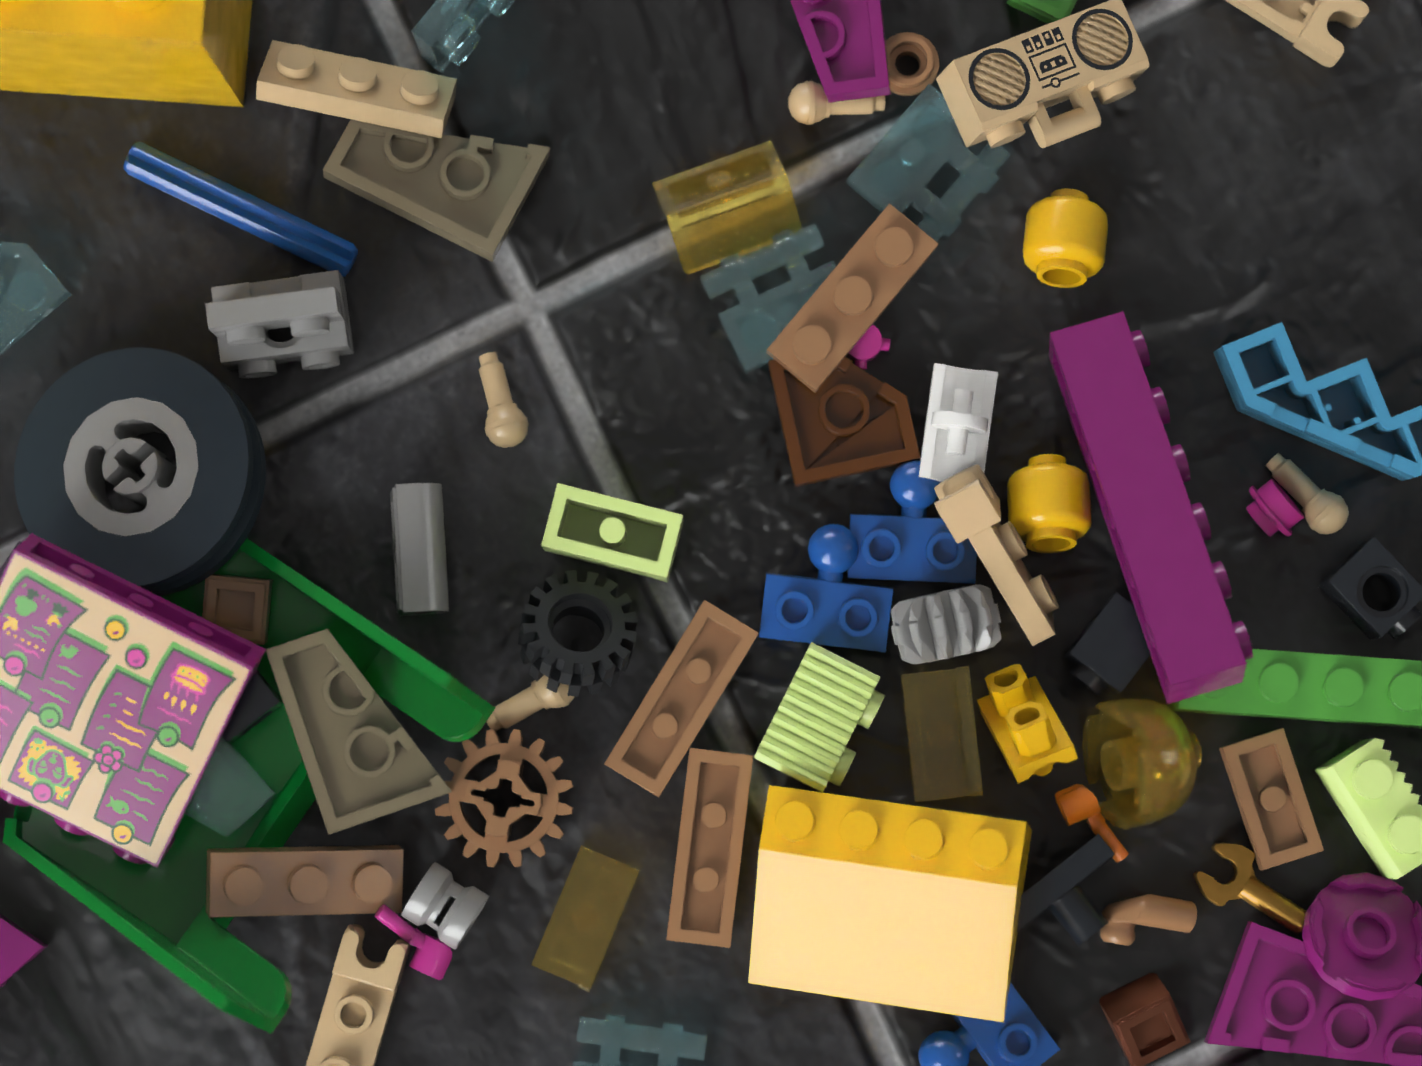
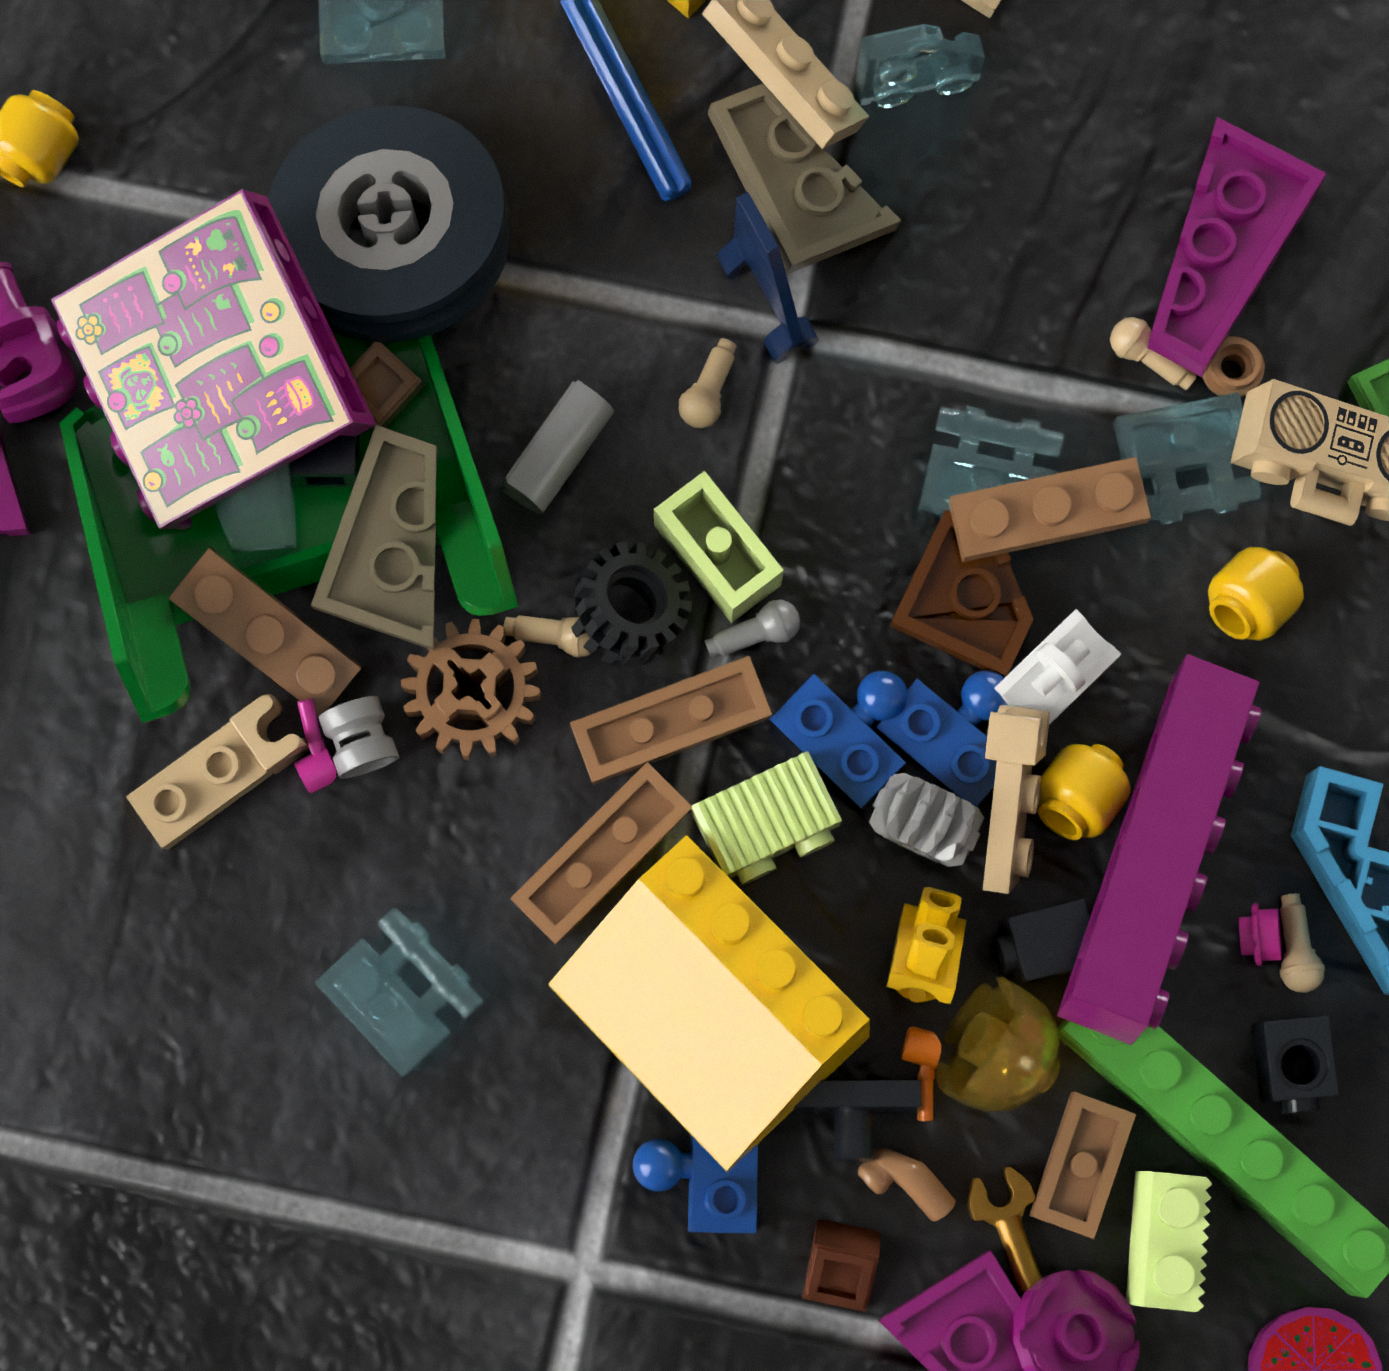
camera: 35 degrees right, 5 degrees down
(308, 304) = (619, 195): light grey brick -> none
(449, 264) = (757, 248): none -> dark blue flag
(586, 917) = (461, 834): clear yellow panel -> none
(702, 555) = (774, 622): none -> light grey piece
(727, 206) = (1004, 370): clear yellow panel -> none
(869, 347) = (1032, 561): dark pink piece -> none
(941, 734) = (854, 907): clear yellow panel -> none

